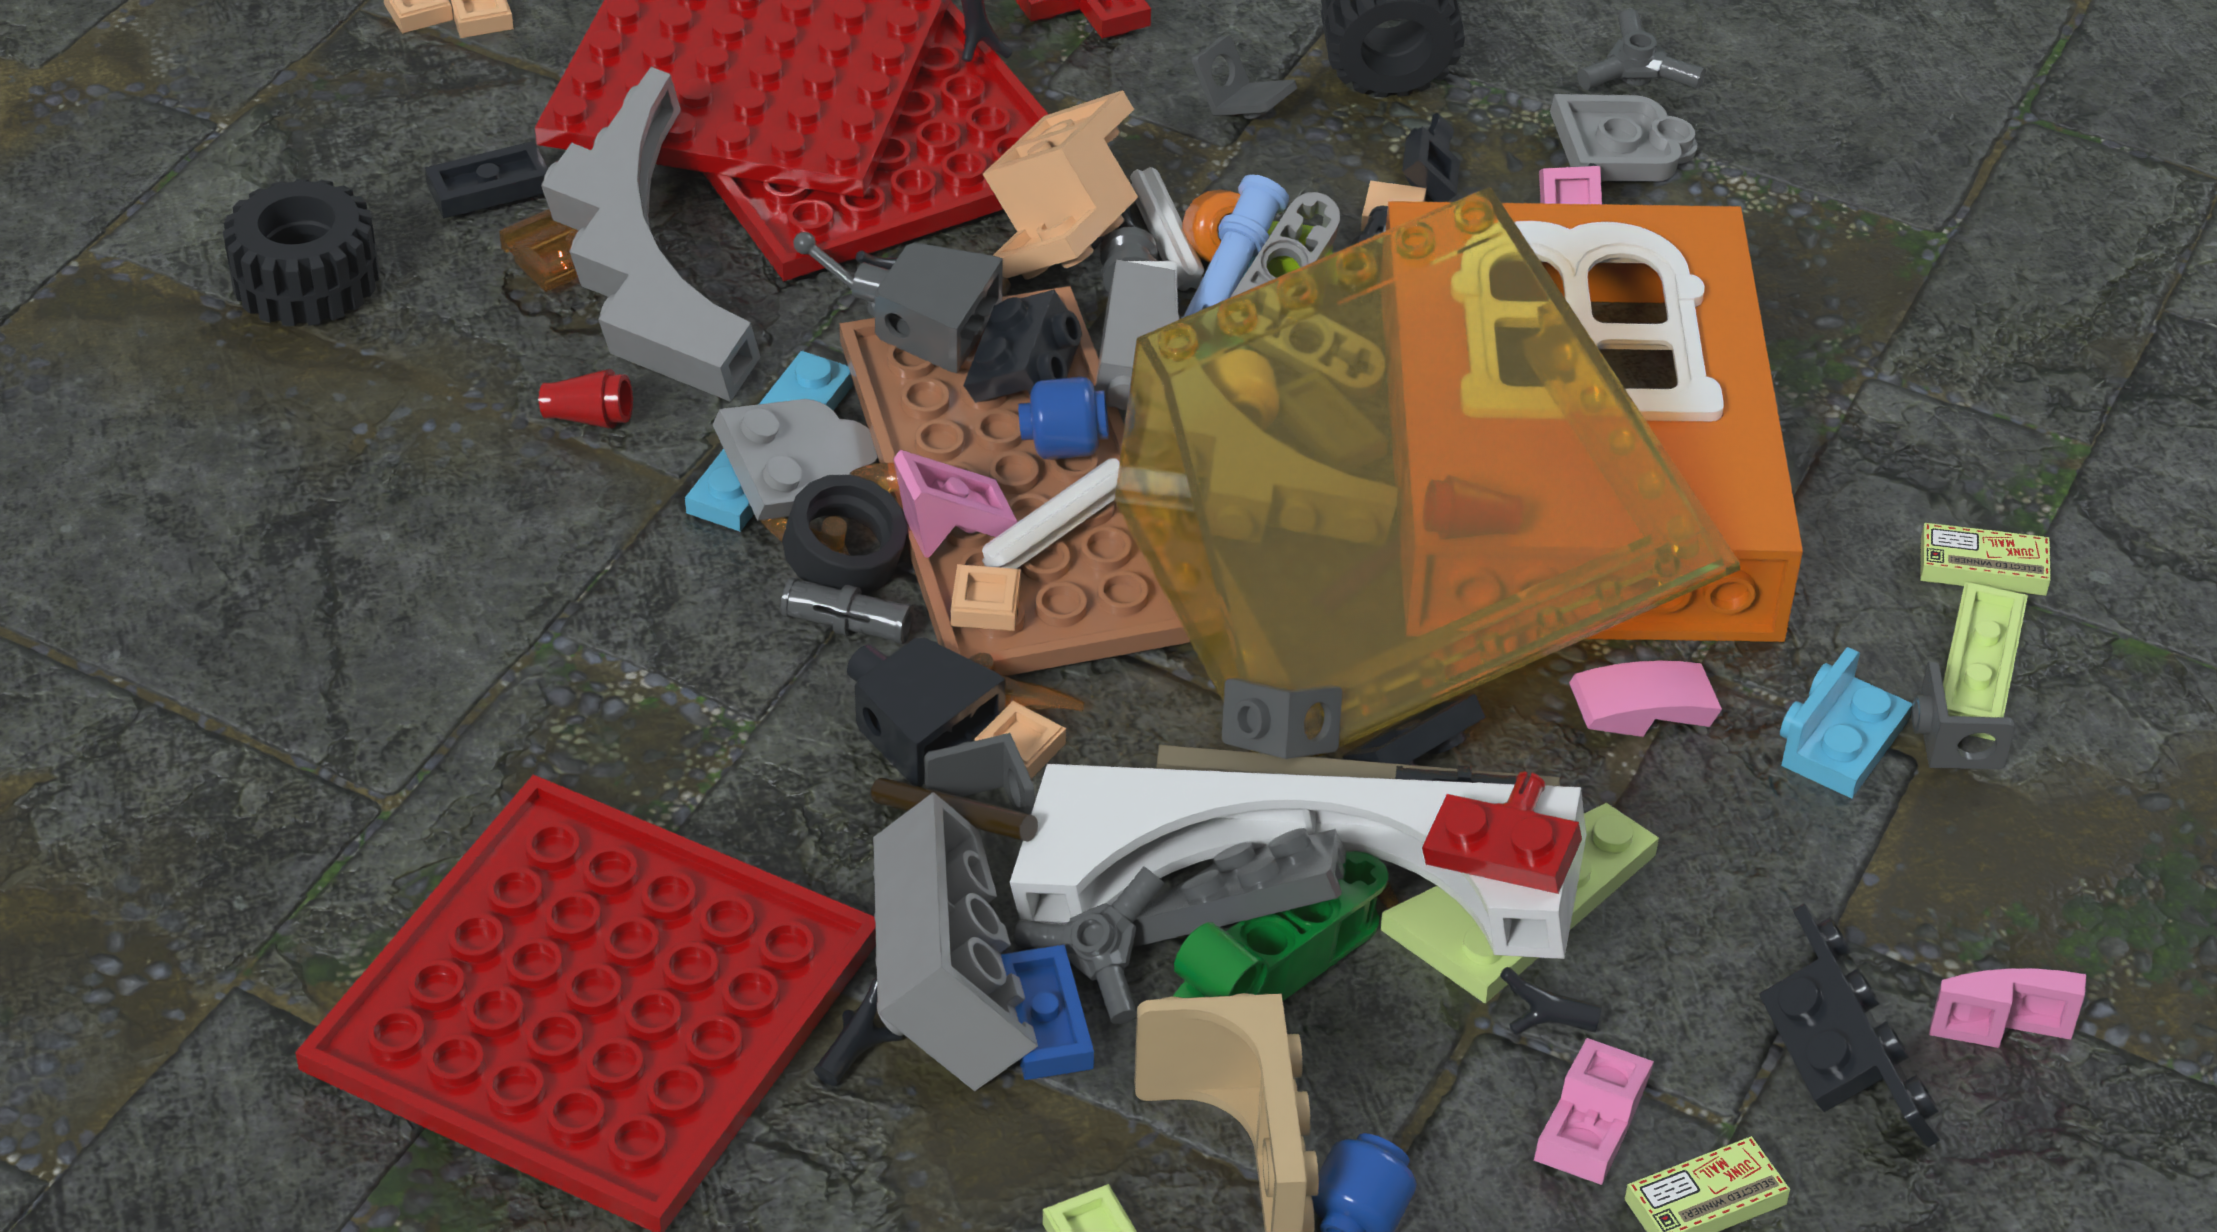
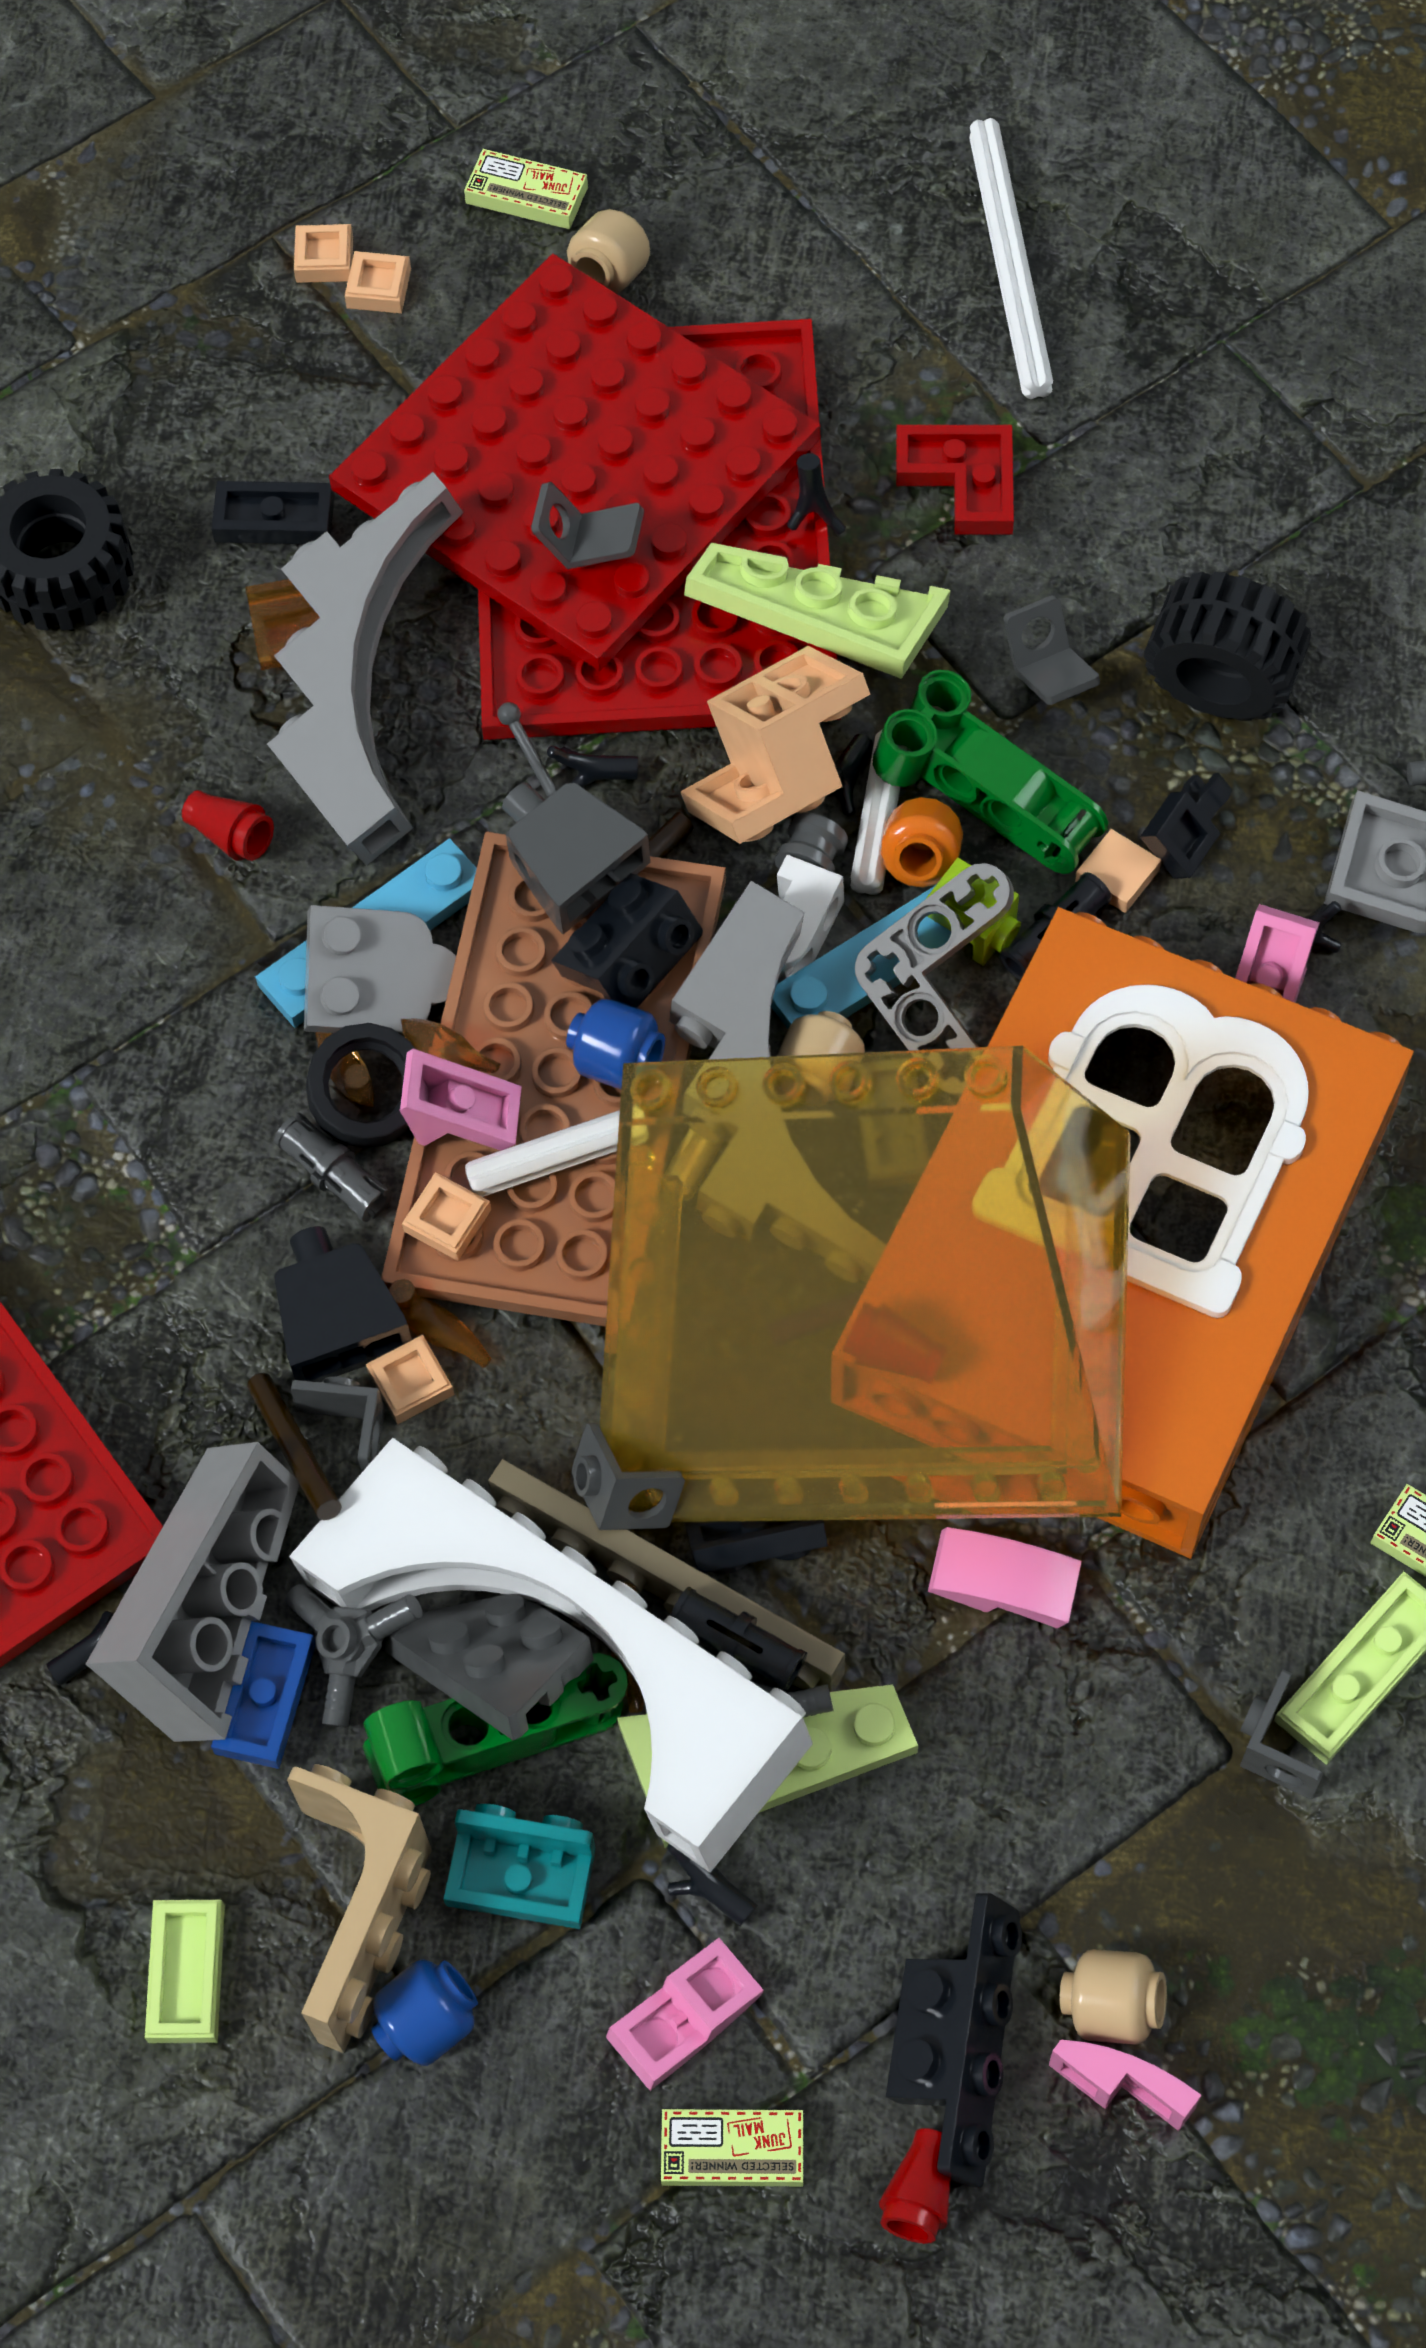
camera: 30 degrees right, 20 degrees up
(814, 88) = (586, 536): none -> dark grey bracket
(1018, 95) = (842, 615): none -> yellowish green wing
(1190, 150) = (985, 774): none -> green piece
(1241, 238) = (911, 879): light blue pin -> none
(1374, 1045) = (520, 1866): none -> teal bracket
(1504, 839) = (695, 1746): red plate -> none
(1841, 727) = (1174, 1691): medium azure bracket -> none
(1896, 1157) = (917, 2195): none -> red cone
(1954, 942) = (1114, 1996): none -> tan head

